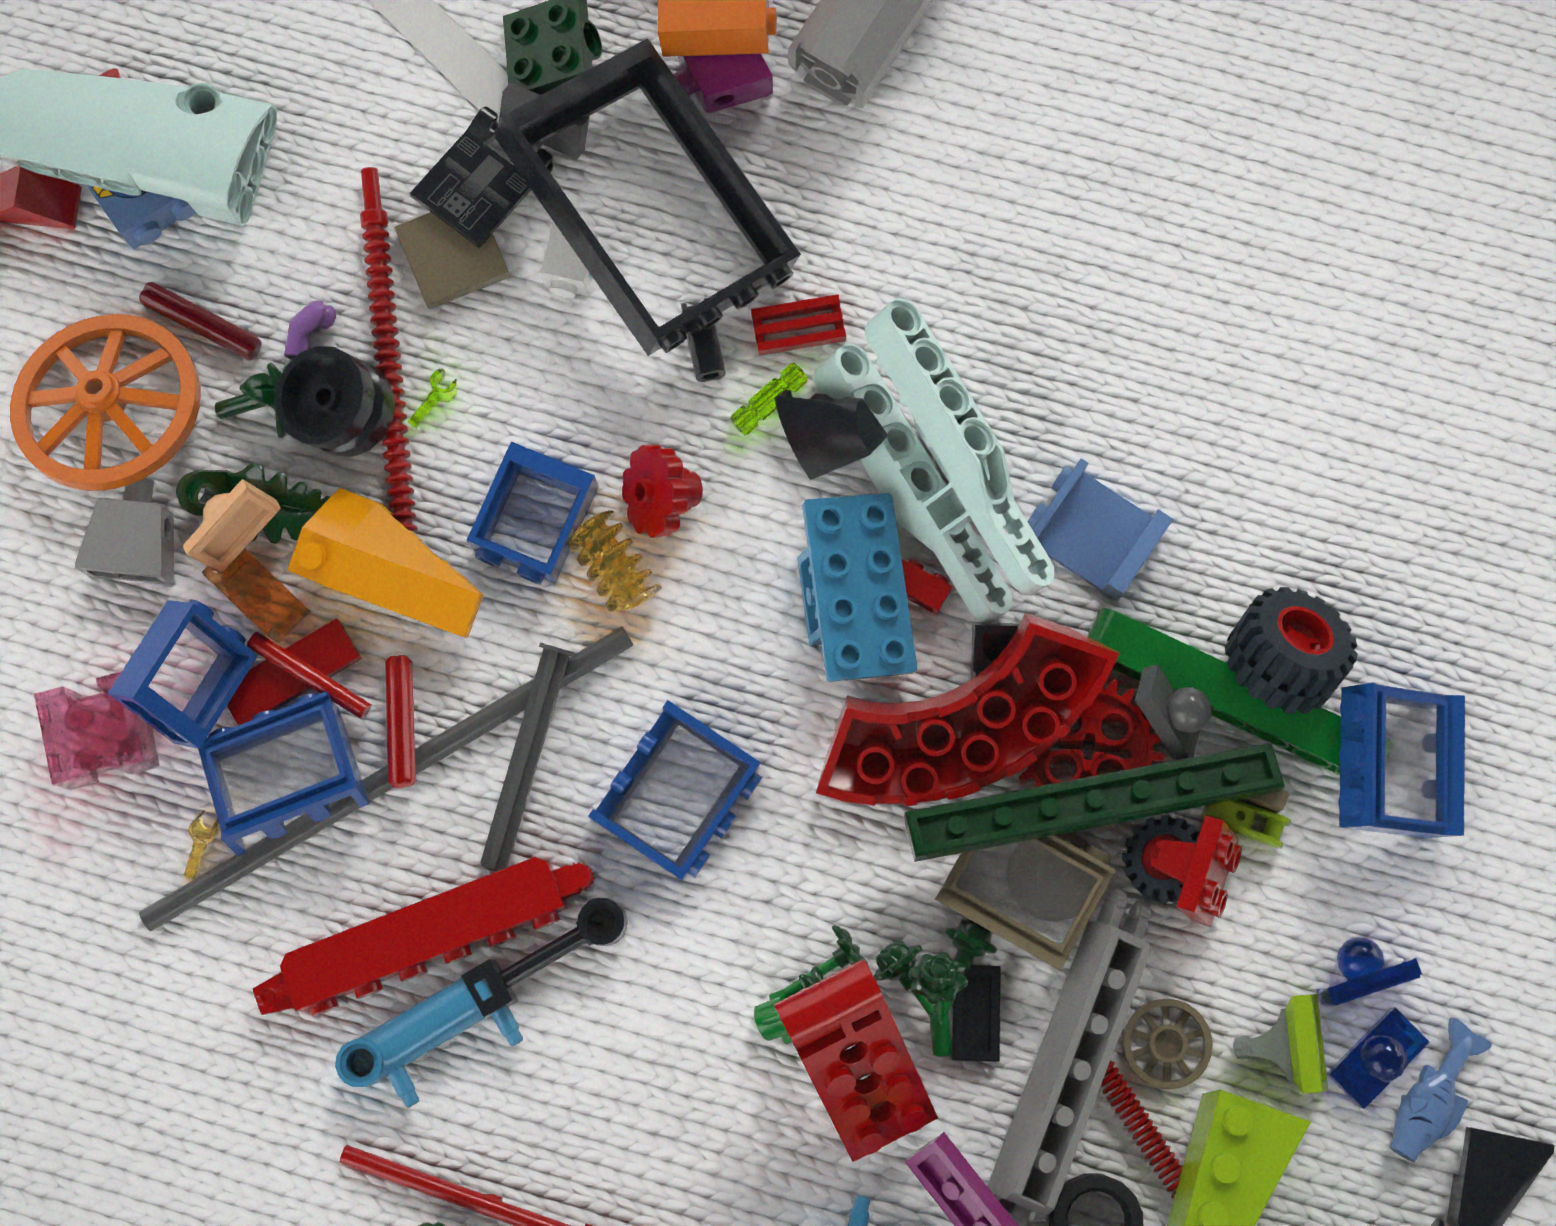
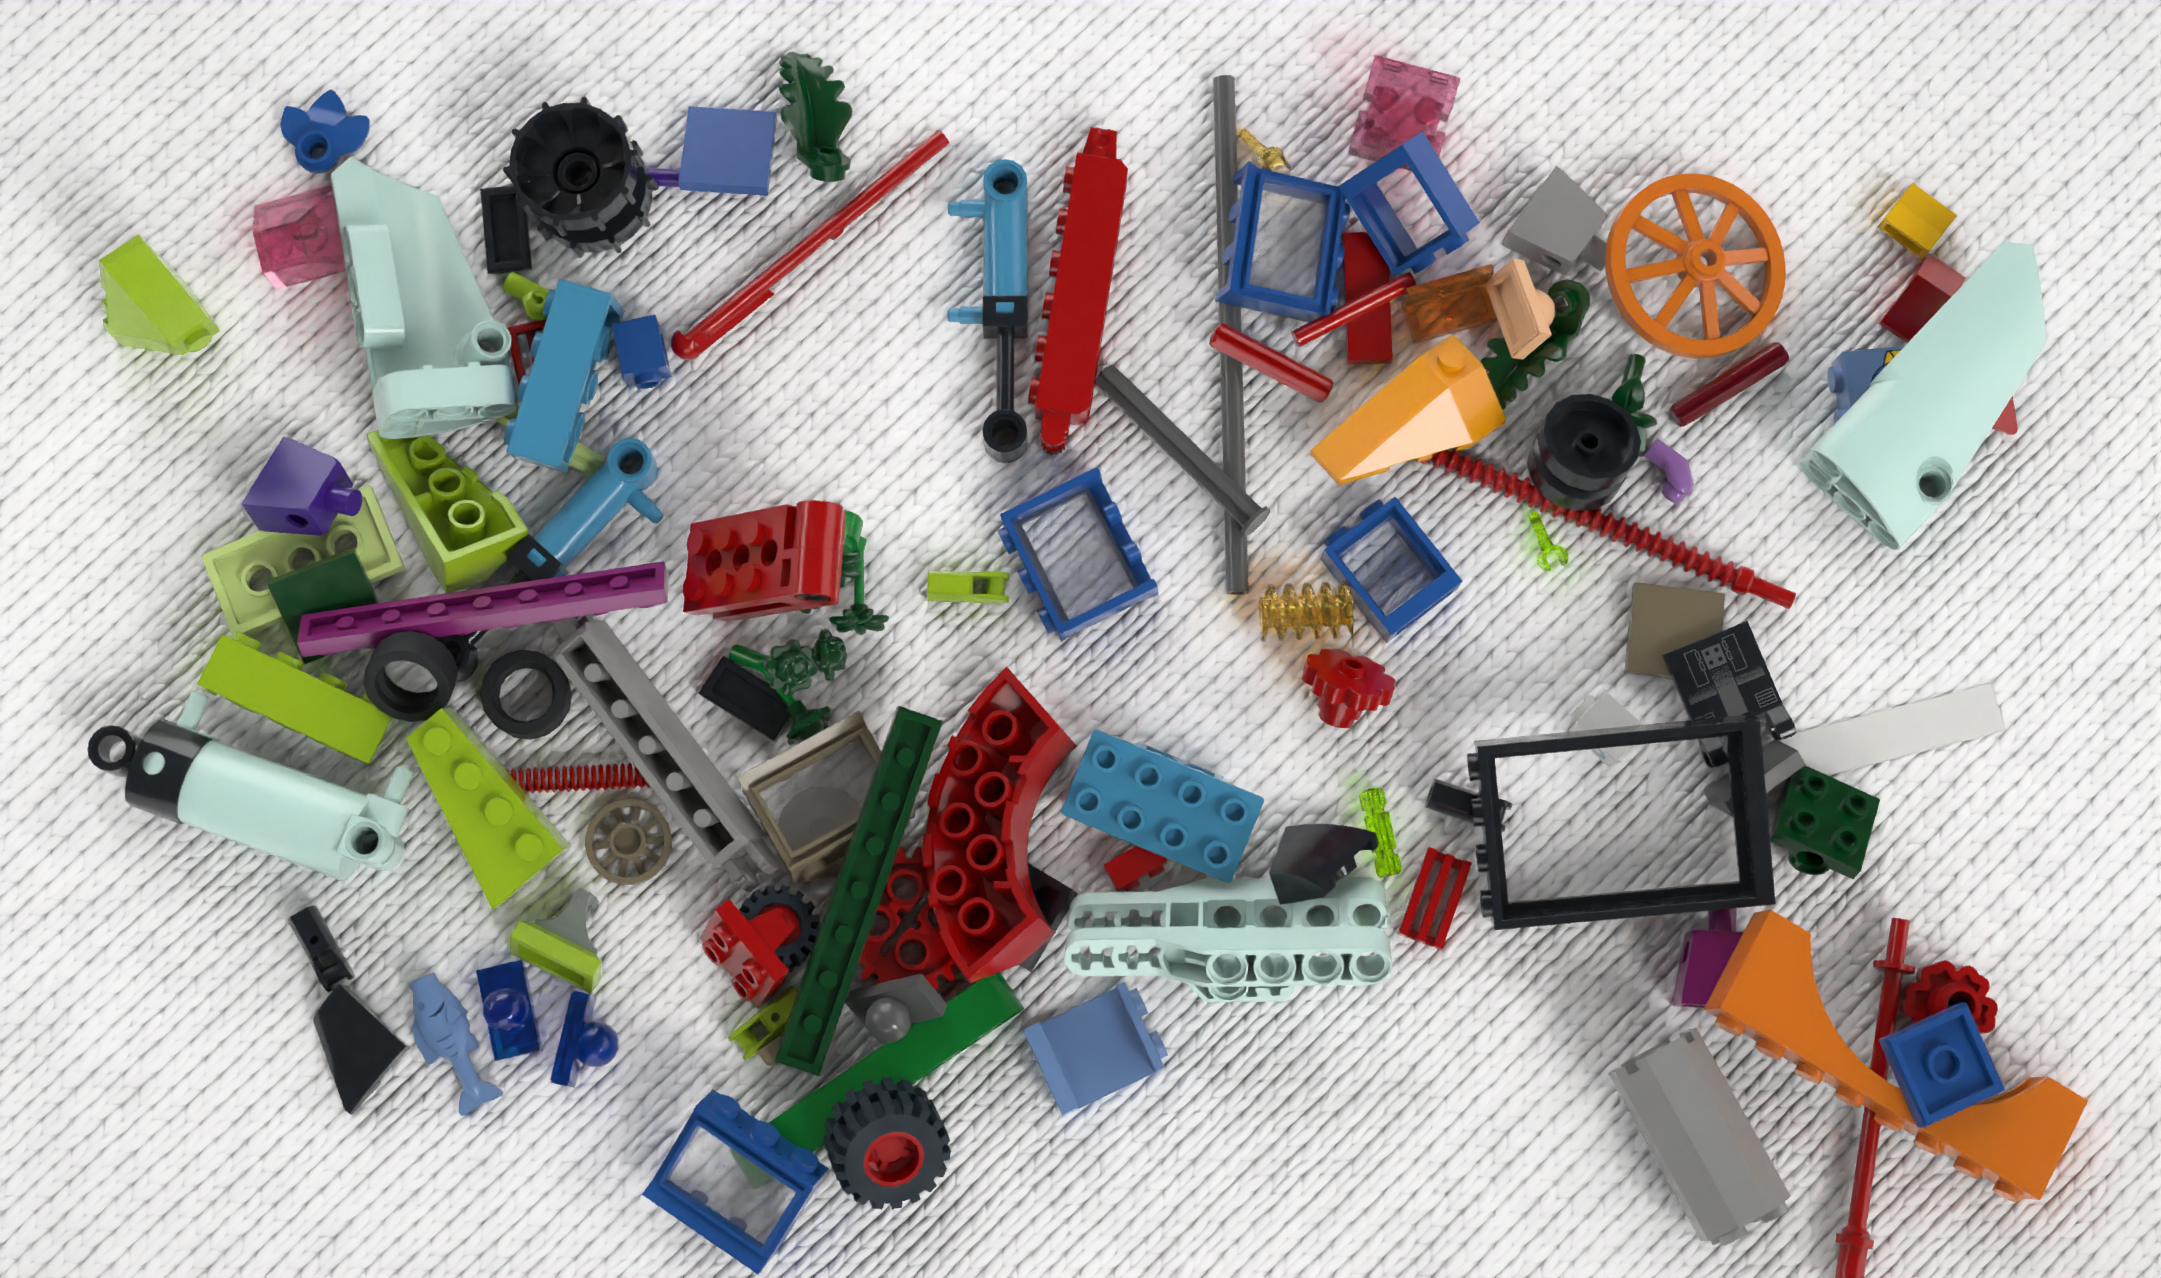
camera: 115 degrees right, 0 degrees up
(764, 882) = (959, 587): none -> lime bar

